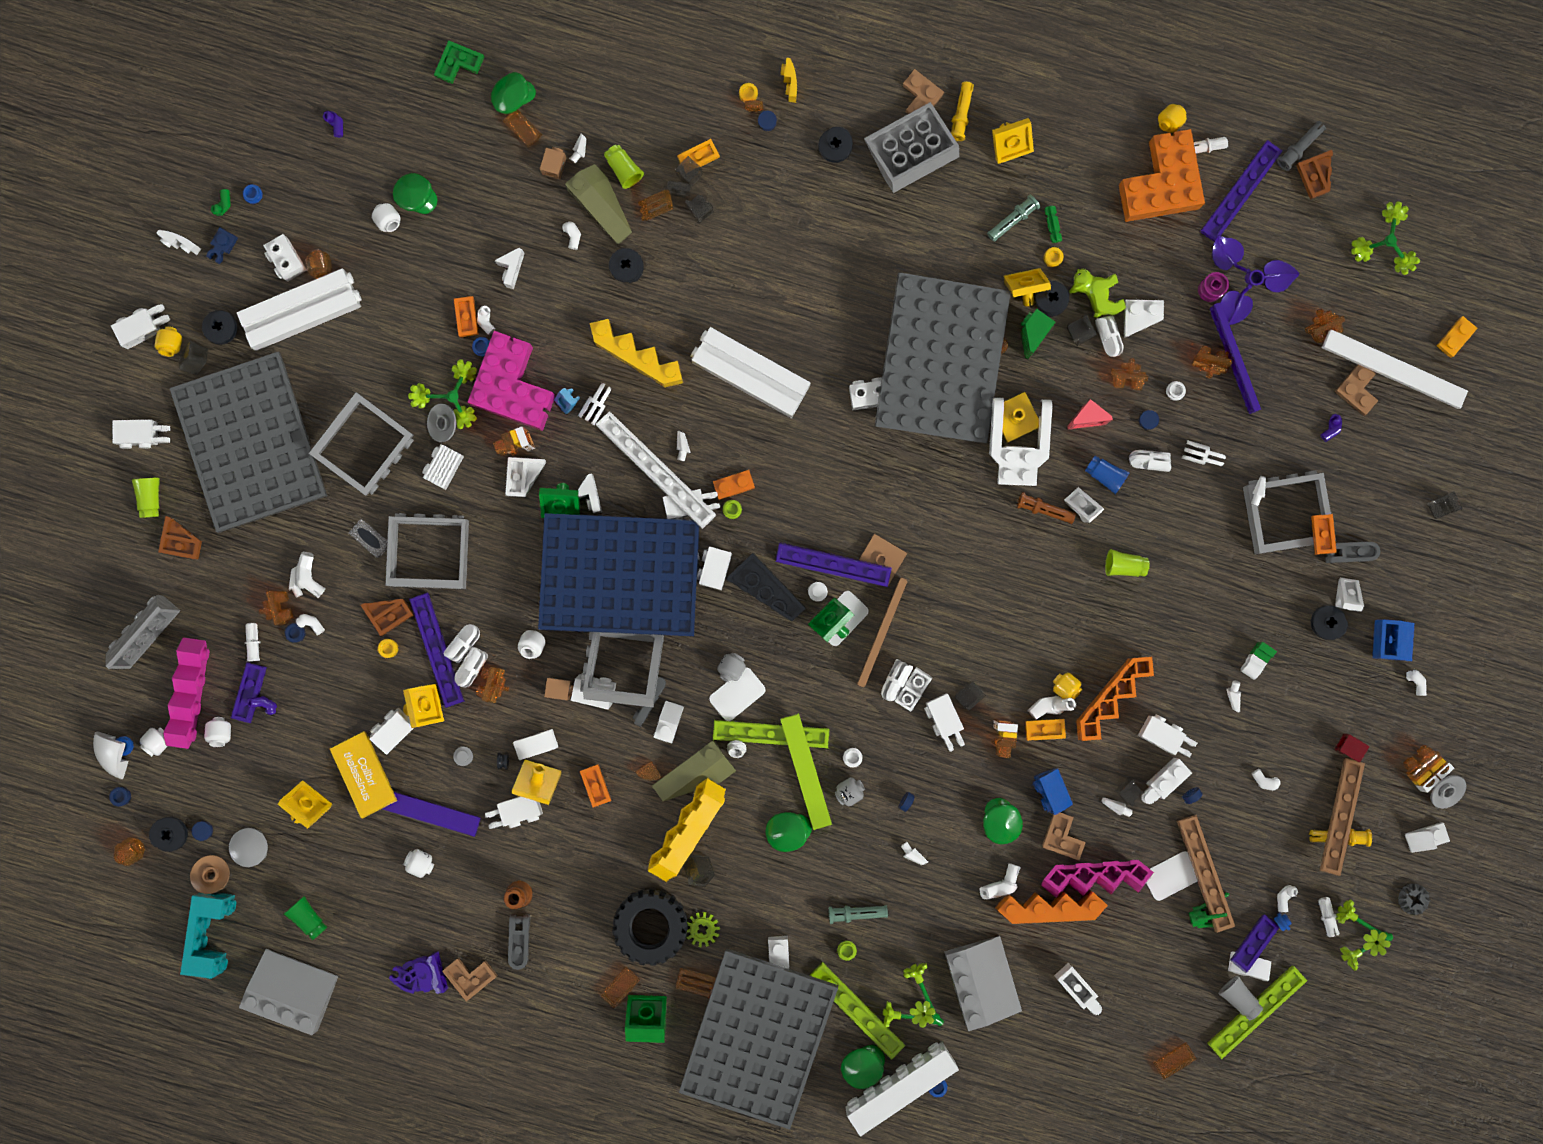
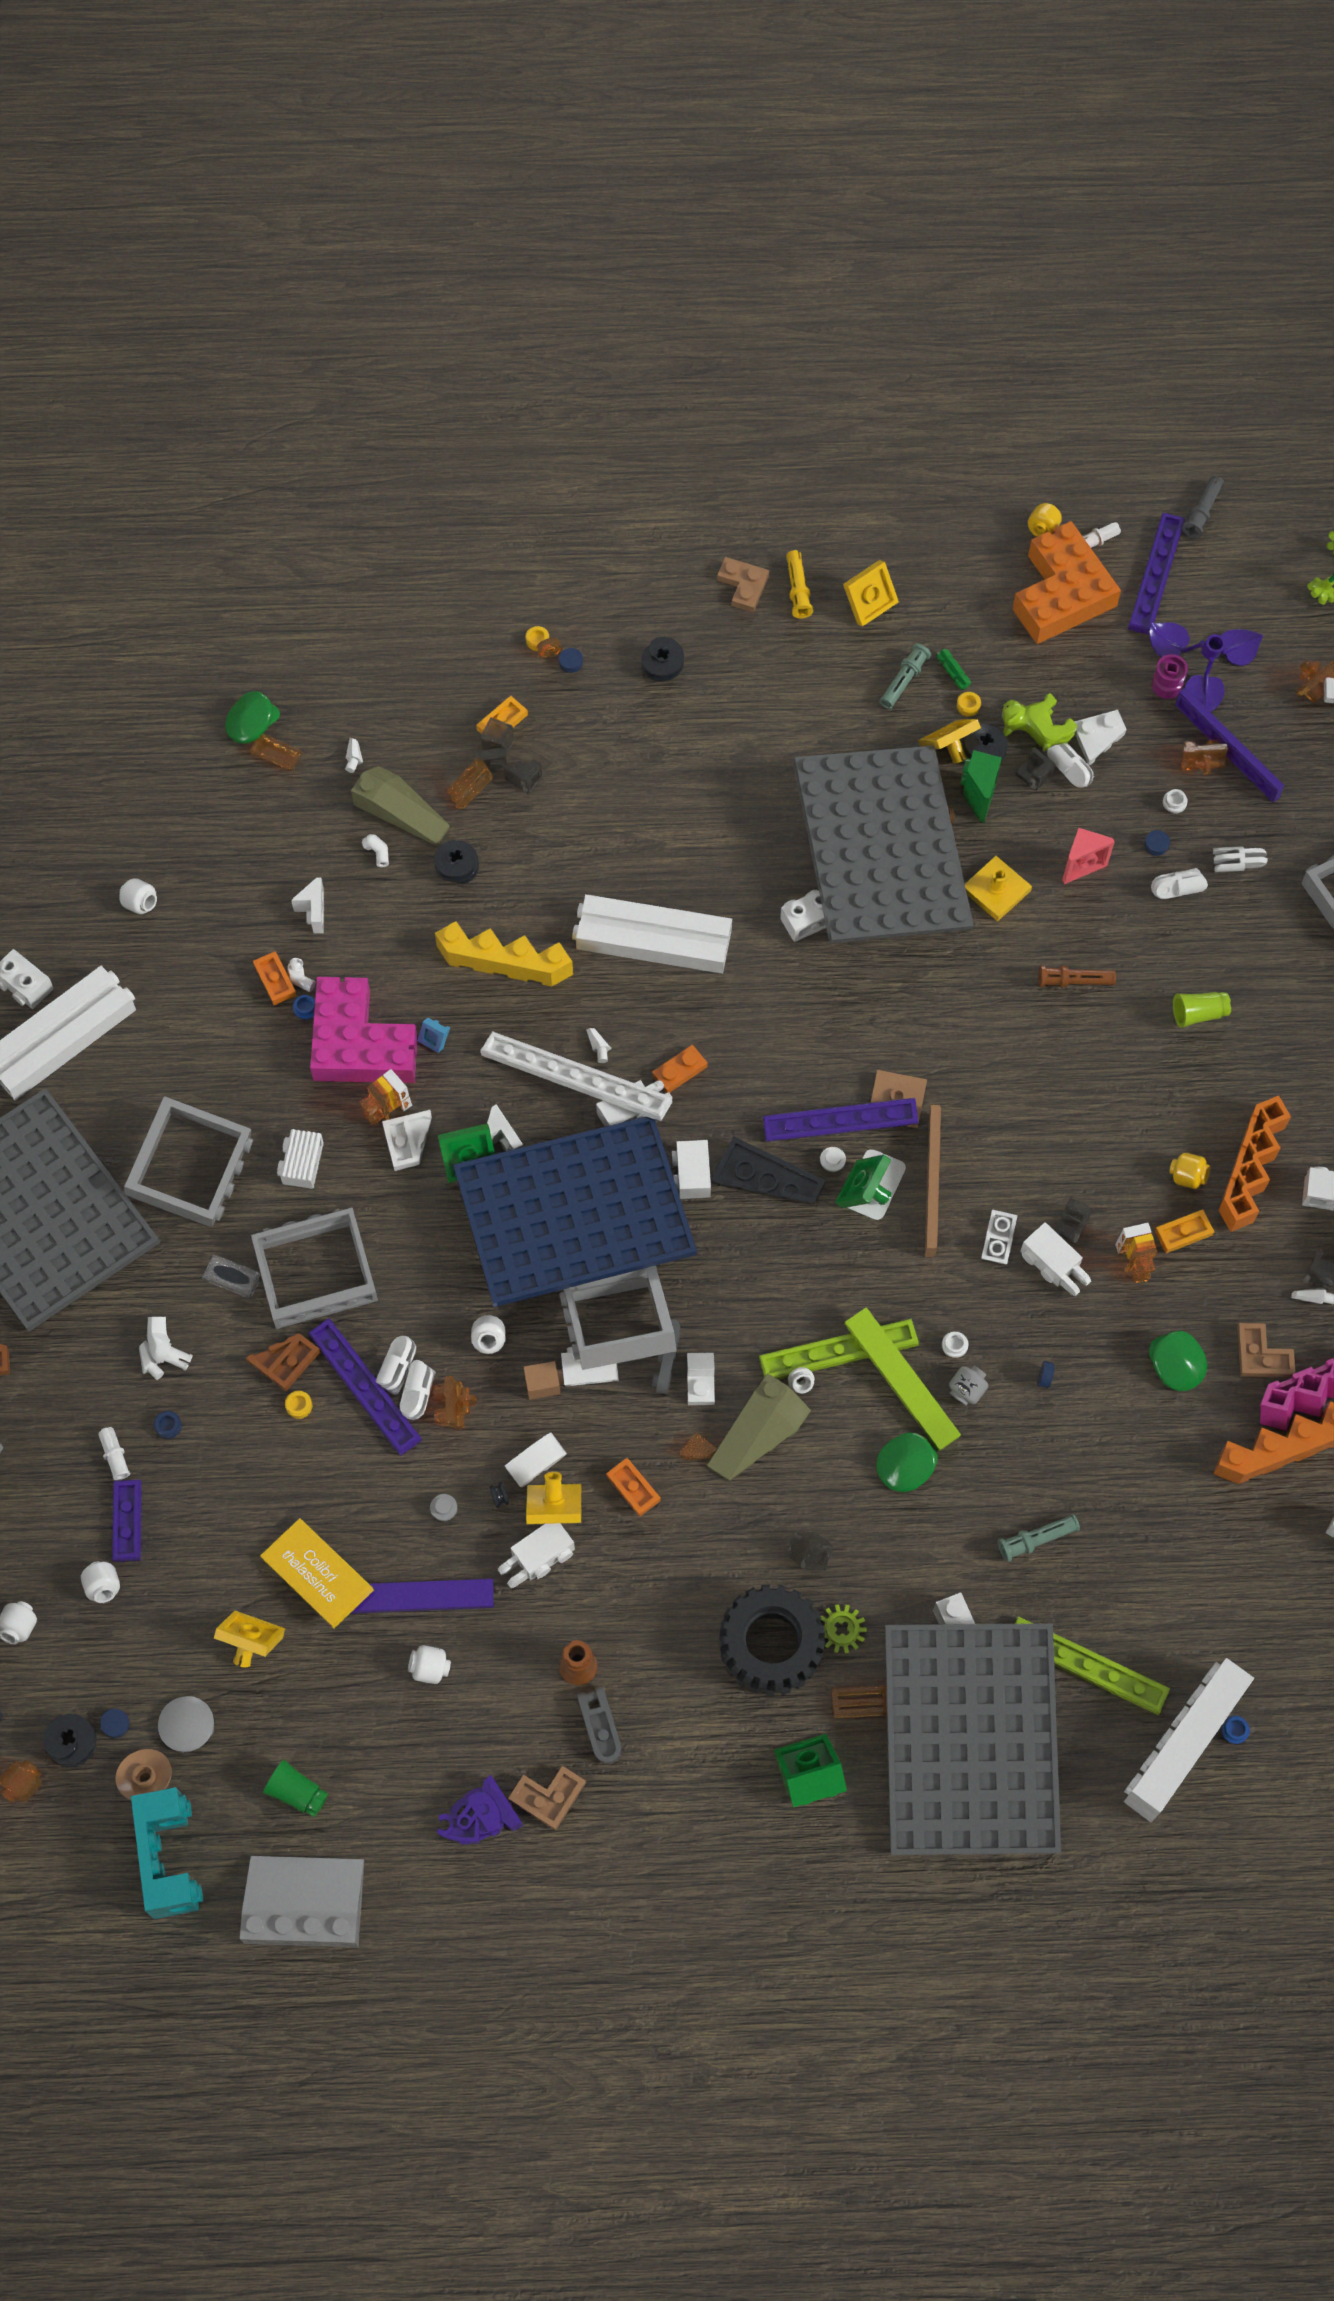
camera: 20 degrees left, 20 degrees down
(188, 687) = (44, 1551): dark pink brick -> none
(264, 702) = (151, 1524): dark purple arm -> none
(279, 616) = (130, 1386): clear orange hips -> none
(311, 621) = (186, 1402): white arm -> none
(318, 264) = (67, 972): clear orange head -> none
(336, 121) = (40, 812): dark purple arm -> none
(391, 730) = (338, 1501): white brick -> none
(415, 194) = (166, 861): green piece -> none
(423, 705) = (369, 1455): yellow tile -> none
(441, 422) = (283, 1107): light grey dish -> none
(456, 57) = (169, 699): green plate -> none
(463, 373) = (291, 1043): lime plant -> none
(553, 163) = (327, 777): medium nougat brick -> none
(596, 403) = (473, 1026): white arm -> none
(620, 987) = (759, 1741): clear orange tile -> none
(623, 166) = (415, 755): lime plant -> none
(685, 835) = (774, 1509): yellow brick -> none
(731, 667) = (757, 1282): light grey head -> none
(732, 509) = (688, 1097): lime plate -> none
(737, 695) = (776, 1317): white sticker -> none
(789, 74) = (582, 607): yellow slope -> none
(846, 950) = (1043, 1590): lime plate -> none
(863, 1067) = (1125, 1736): green piece -> none
(896, 680) = (973, 1231): white arm -> none
(912, 147) = (756, 635): light grey slope -> none
(913, 854) = (1081, 1440): white bar -> none
(924, 1012) = (1176, 1619): lime plant -> none
(983, 982) = (1236, 1571): light grey slope -> none
(1002, 887) = (1214, 1439): white arm -> none
(1019, 463) = (1021, 934): white plate -> none
(1051, 705) = (1180, 1199): white arm -> none
(1053, 791) = (1224, 1299): blue slope -> none
(1083, 505) = (1121, 956): white slope -> none
(1107, 474) = (1133, 913): blue plant -> none
(1137, 377) = (1123, 799): clear orange hips -> none
(1259, 491) = (1323, 873): white bar -> none
(1316, 174) = (1234, 530): dark orange wing -> none

